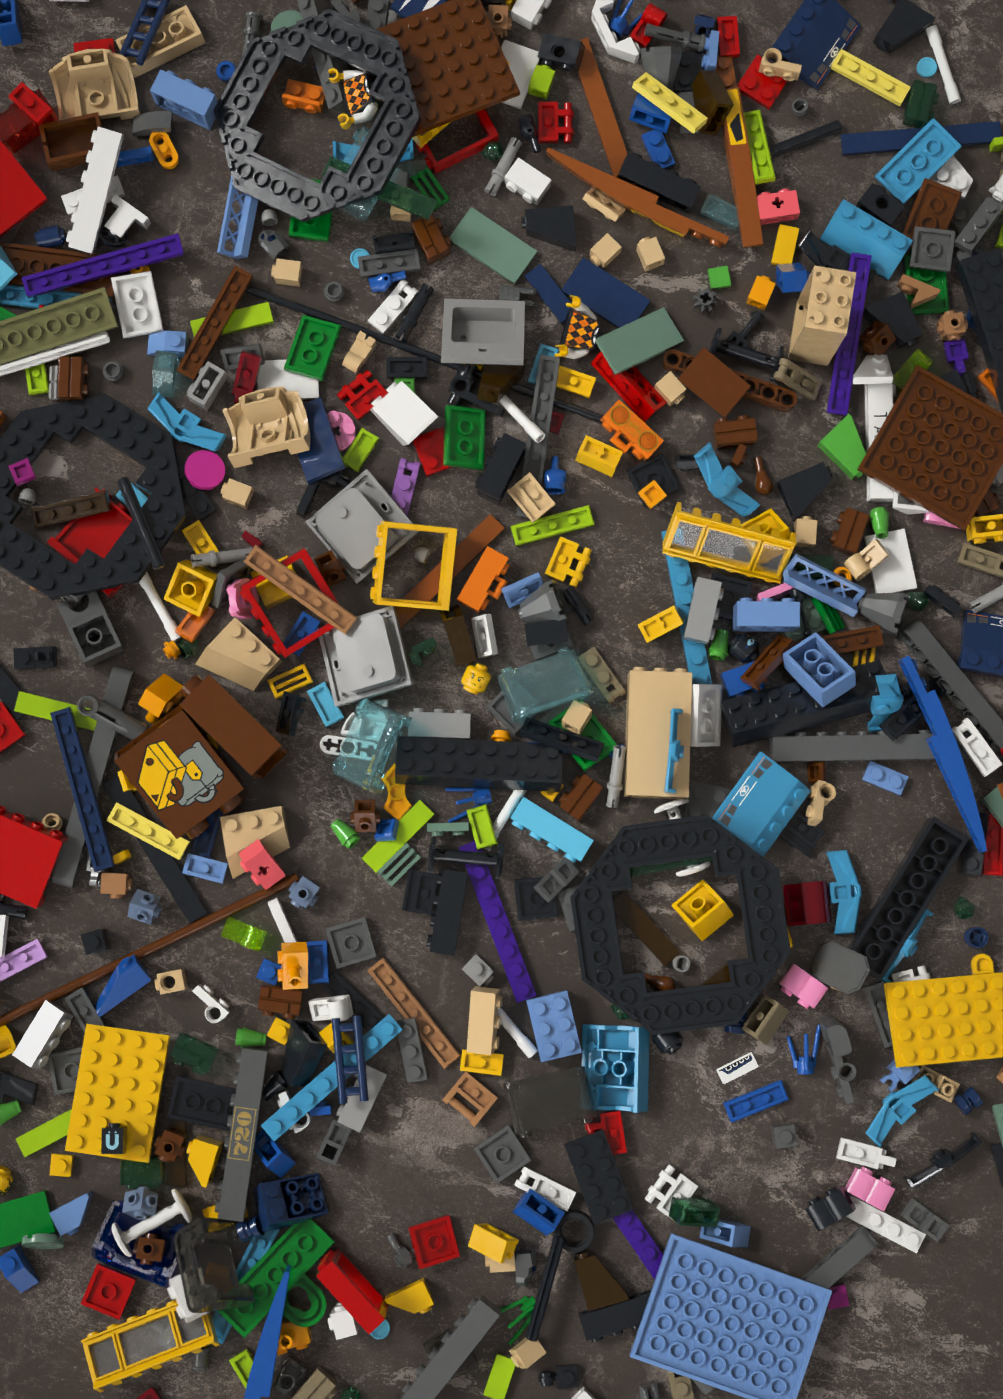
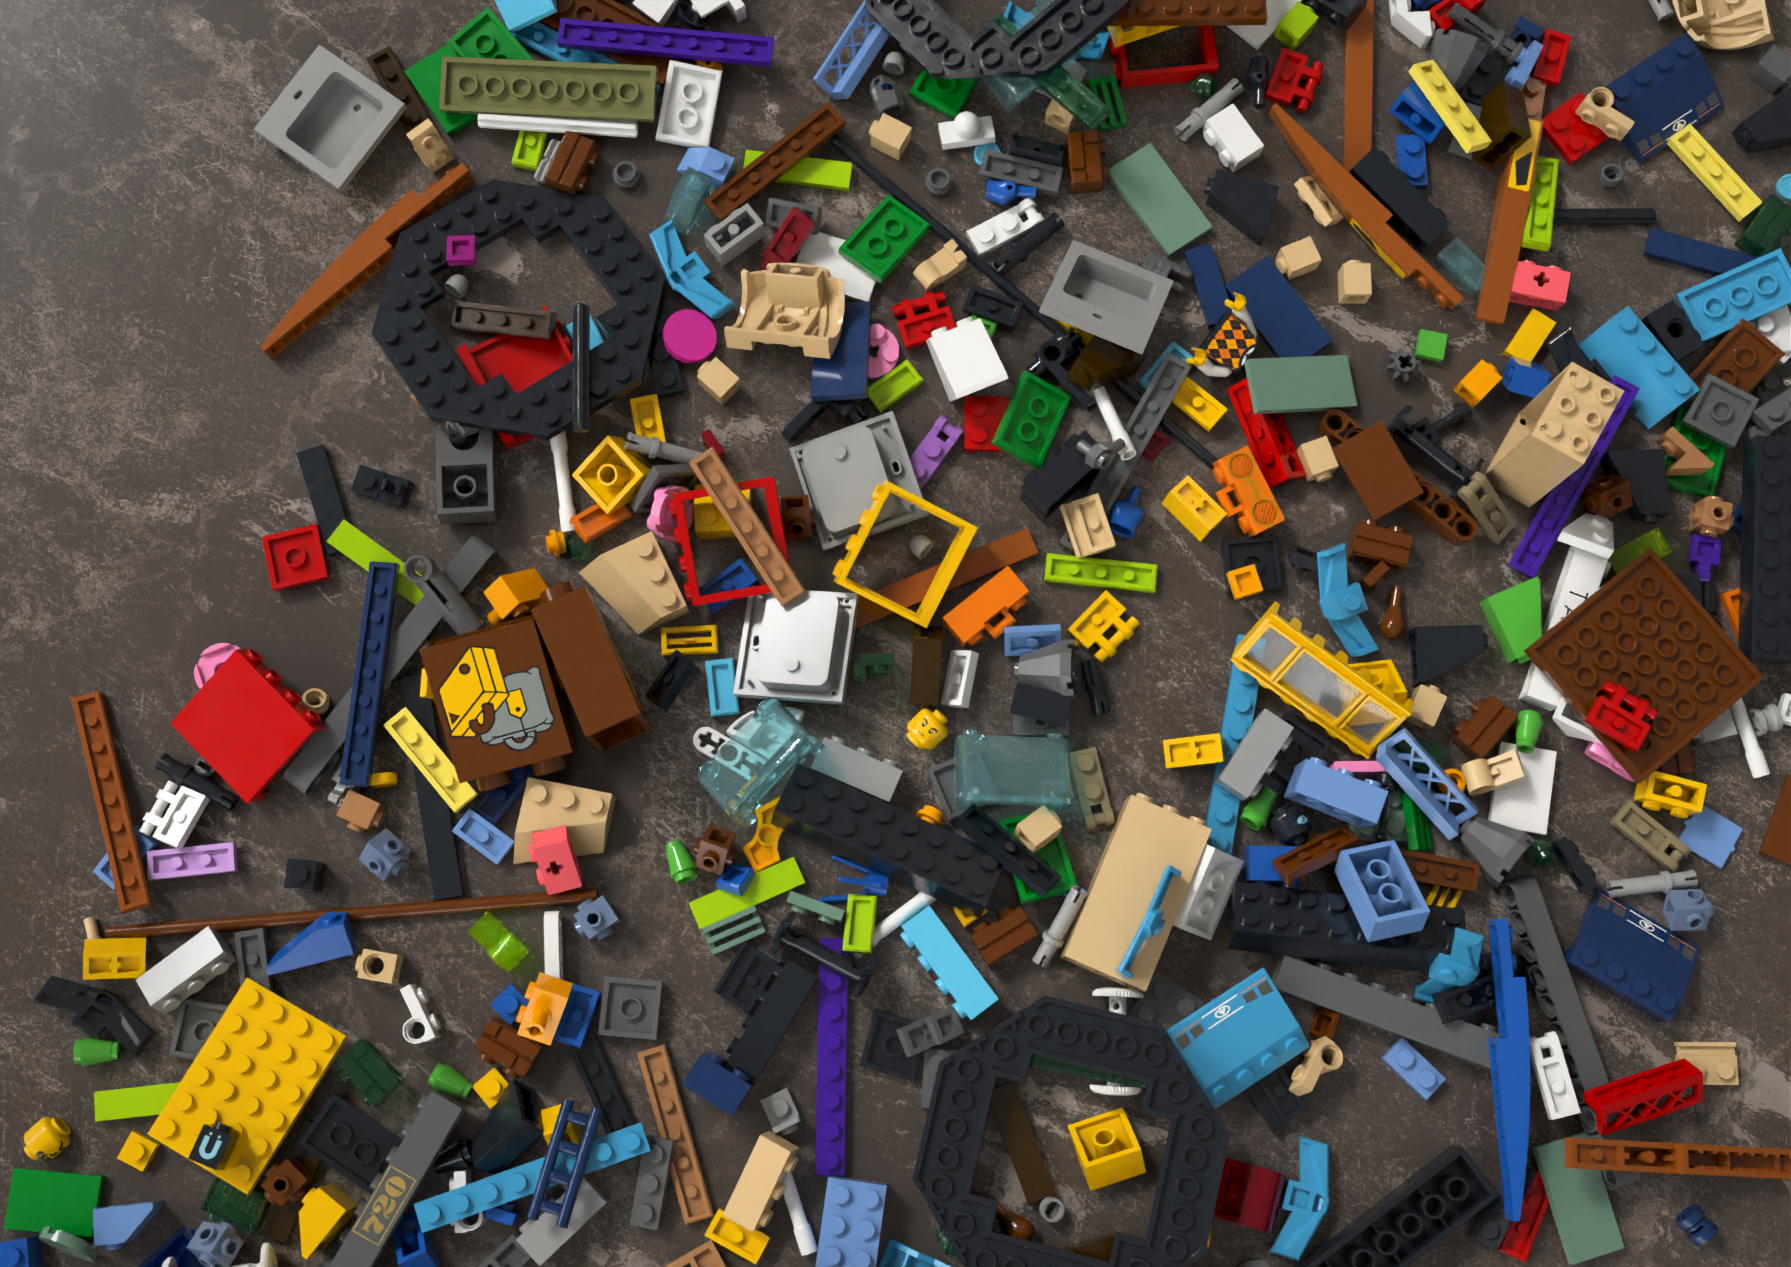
camera: 20 degrees right, 5 degrees down
(331, 1007) = (570, 1084): white plate -> none
(339, 248) = (966, 131): none -> white tile
(430, 968) = (718, 1083): none -> dark blue brick
(521, 446) = (1099, 455): none -> dark grey piece
(936, 495) = (1618, 723): none -> red plate

